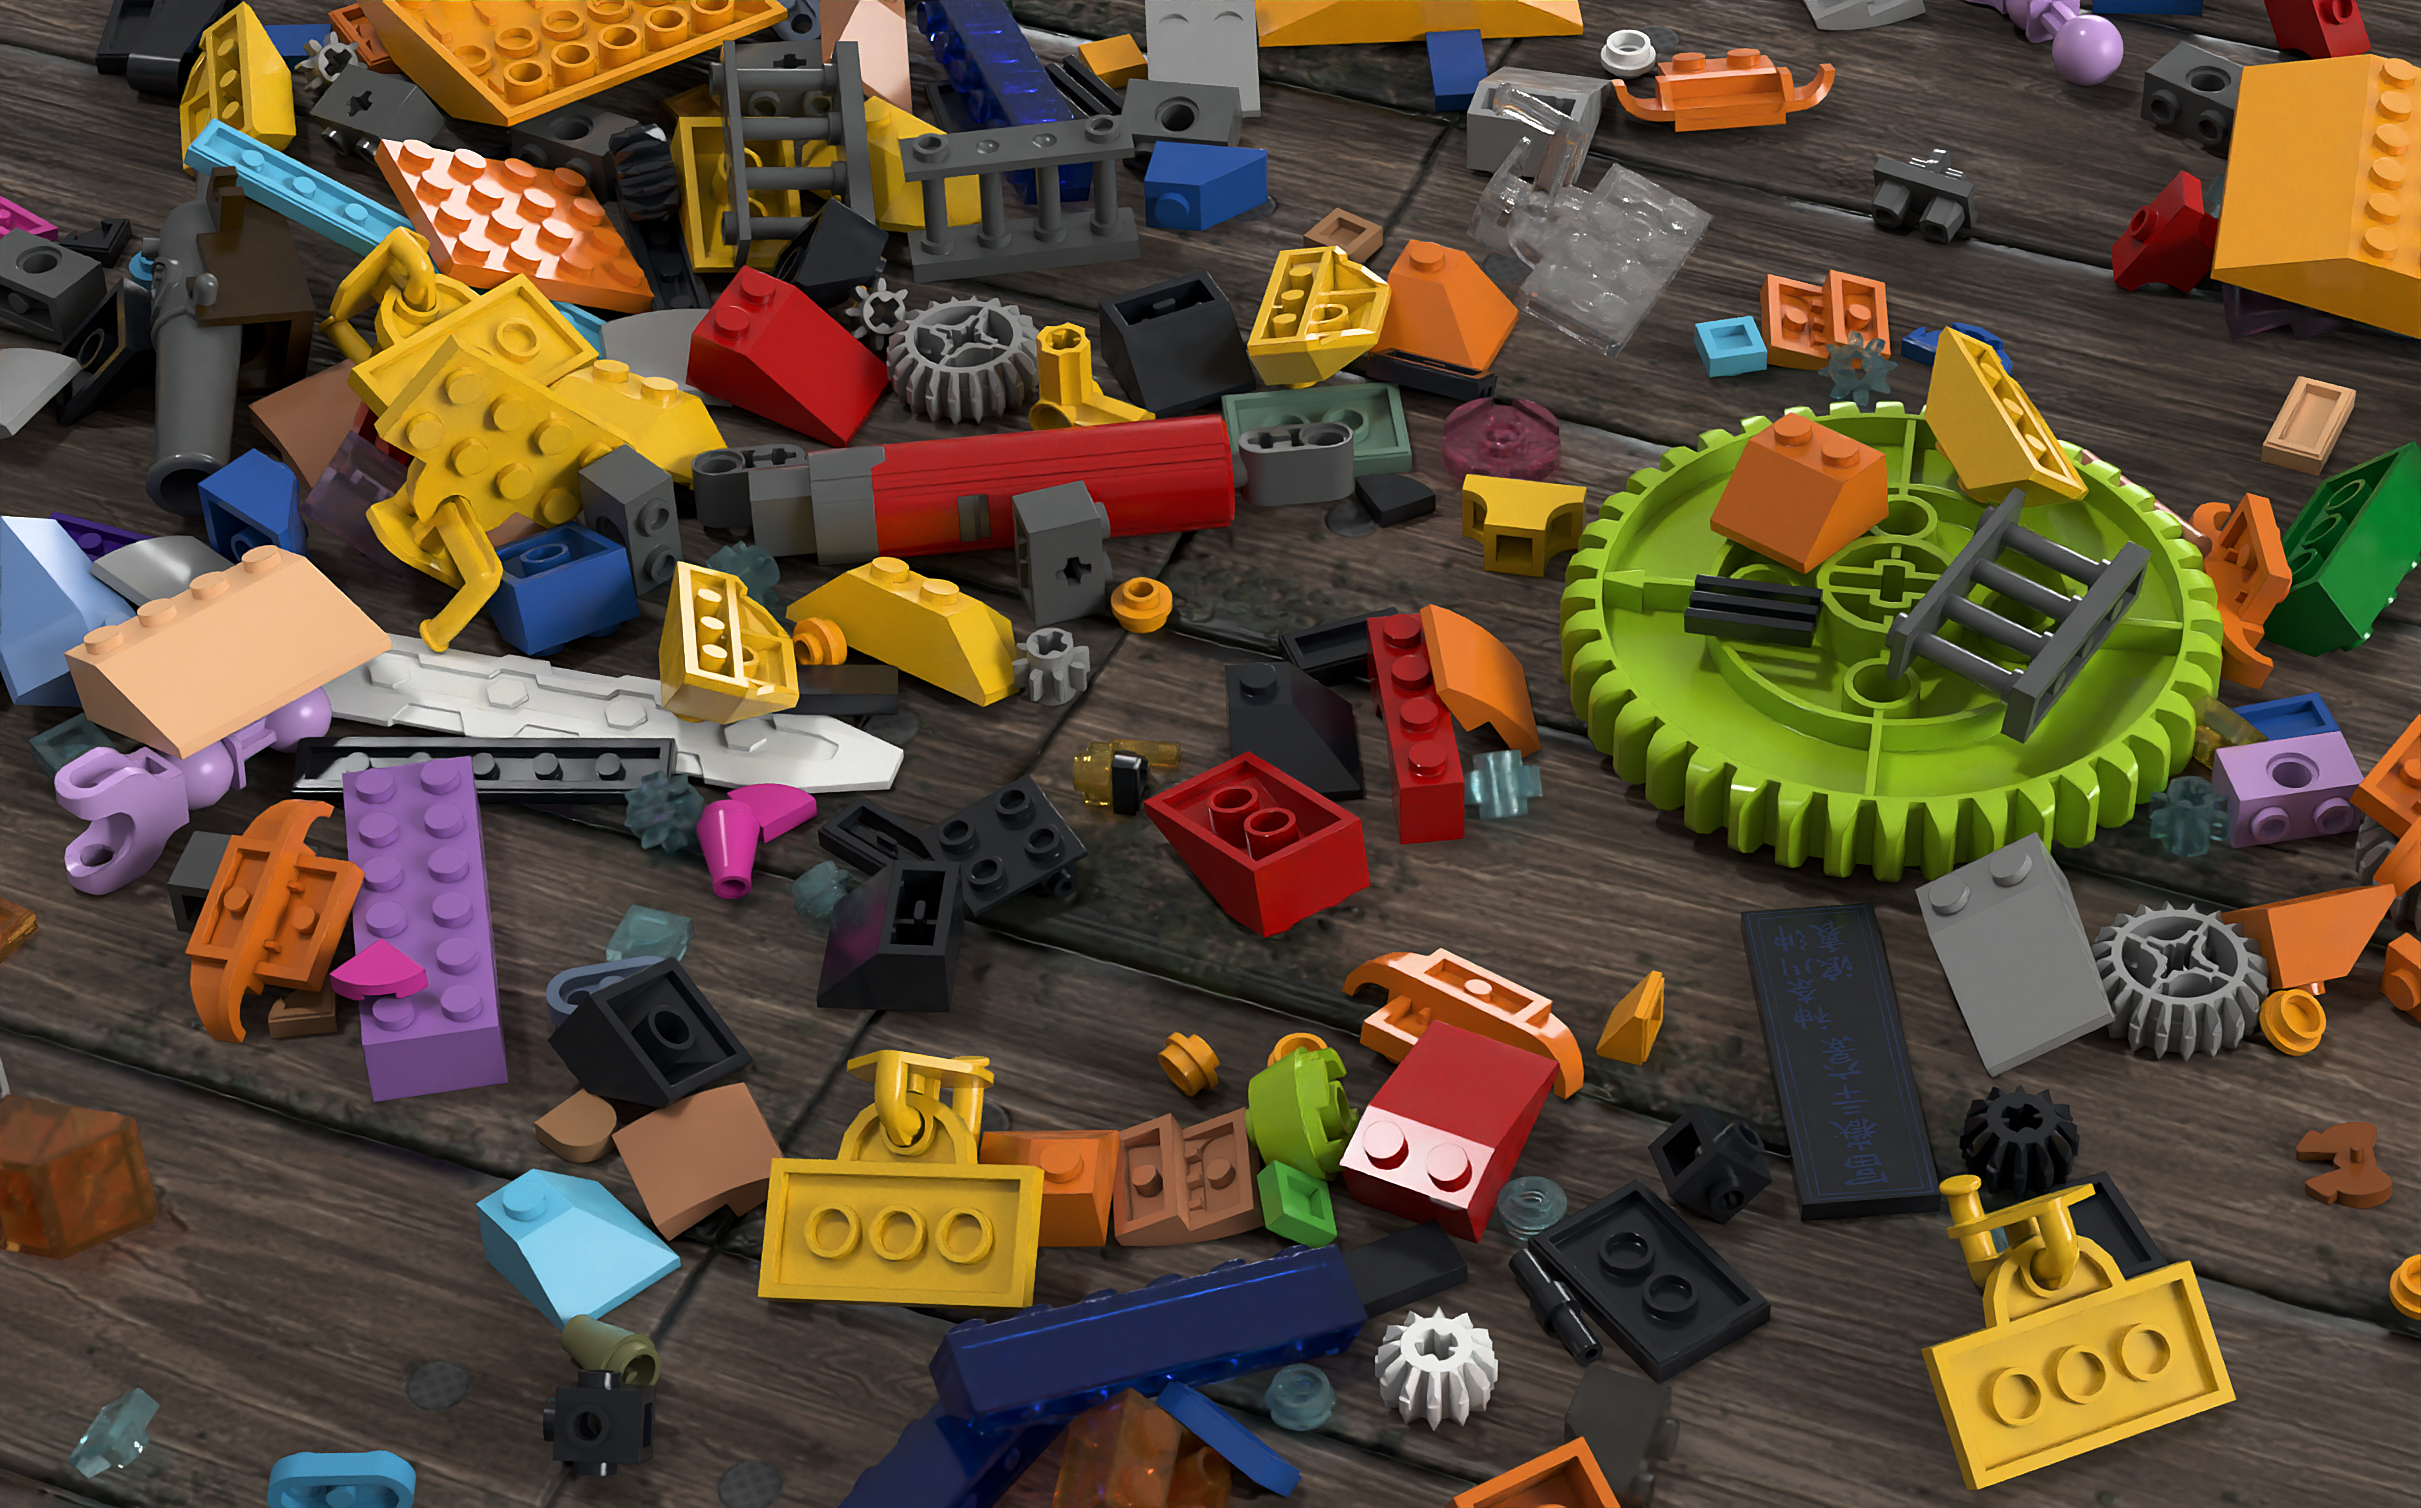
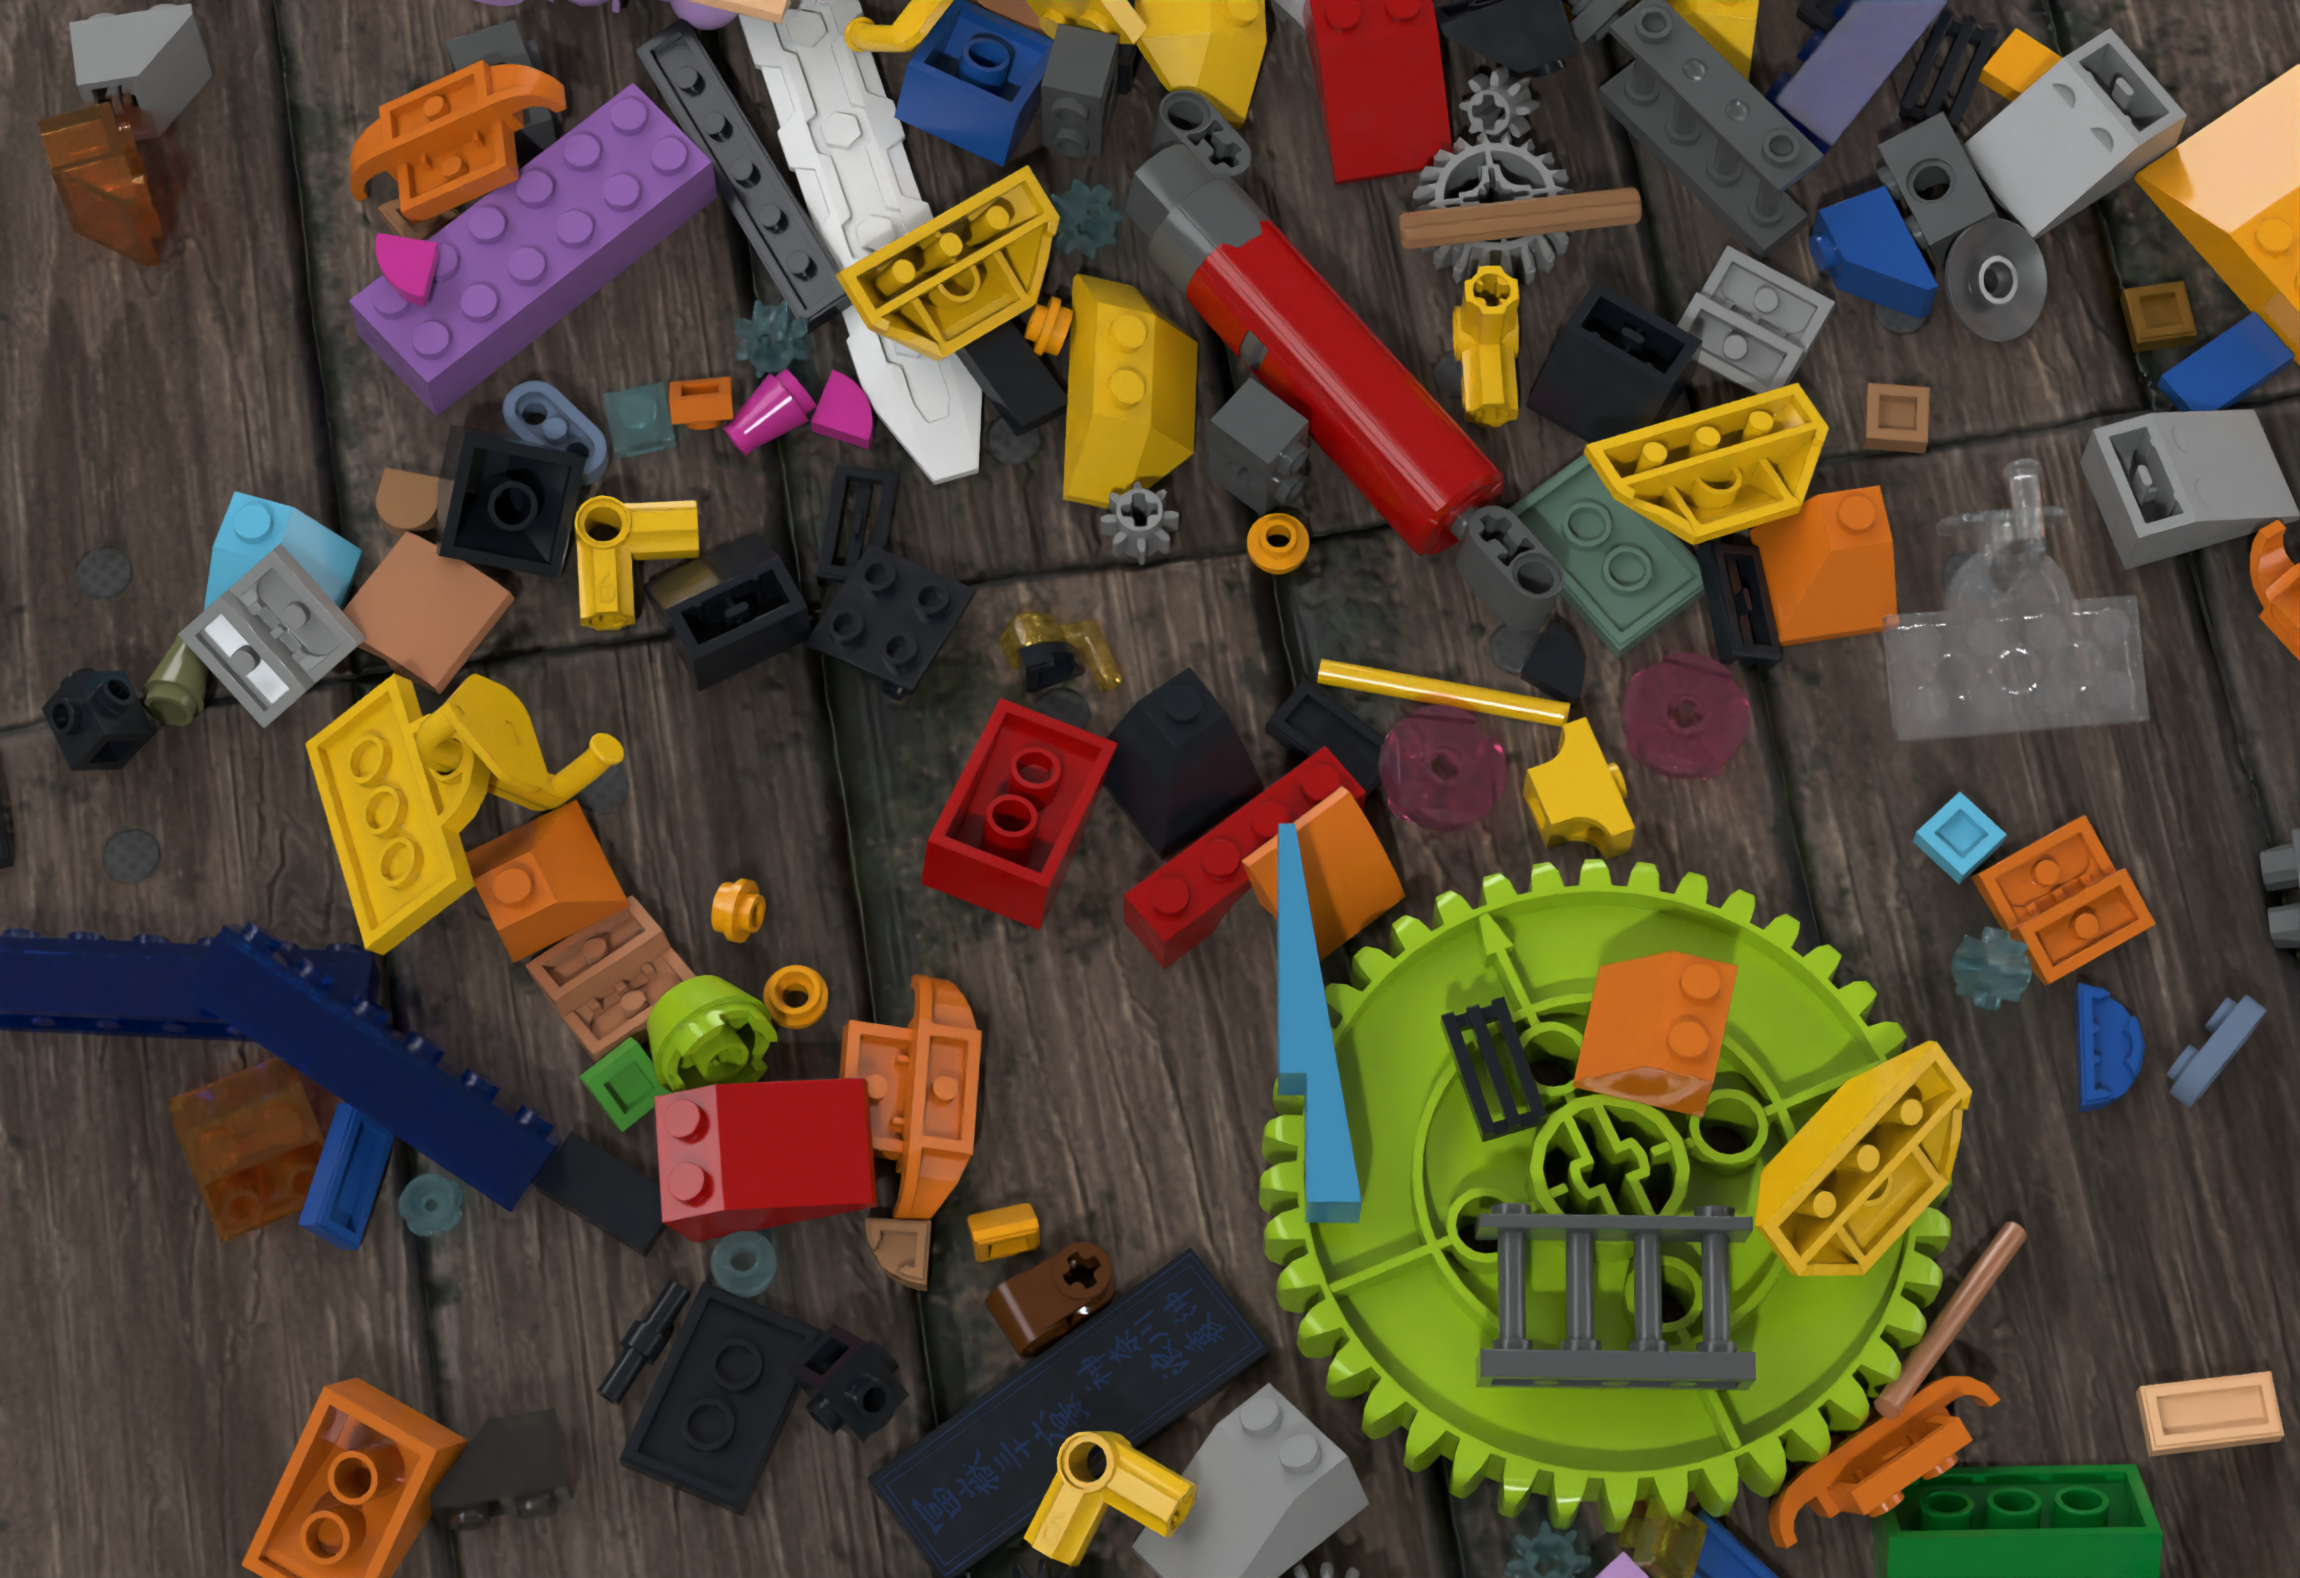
camera: 55 degrees right, 25 degrees up
(638, 1255) = (272, 636): none -> light grey slope
(680, 882) = (701, 402): none -> orange plate
(760, 996) = (606, 567): none -> yellow piece
(820, 889) = (762, 512): clear light blue plate -> none
(1000, 323) = (1519, 218): none -> medium nougat axle
(1192, 251) = (1754, 322): none -> light grey slope
(1281, 135) = (2012, 274): none -> flat silver dish
(1359, 570) = (1443, 693): none -> yellow bar
(1381, 83) = (2158, 316): none -> pearl gold tile
(1436, 1368) = (518, 1313): white gear -> none
(1441, 579) = (1418, 792): none -> clear pink plate
(1501, 784) = (1214, 967): clear light blue gear -> none
(1597, 1102) = (901, 1249): none -> medium nougat tile
(1640, 693) = (1307, 1048): none -> dark azure slope
(1725, 1007) = (1045, 1303): none -> reddish brown piece
(1947, 1008) = (1129, 1484): none -> yellow piece
(2016, 290) = (2231, 1028): none -> sand blue plate

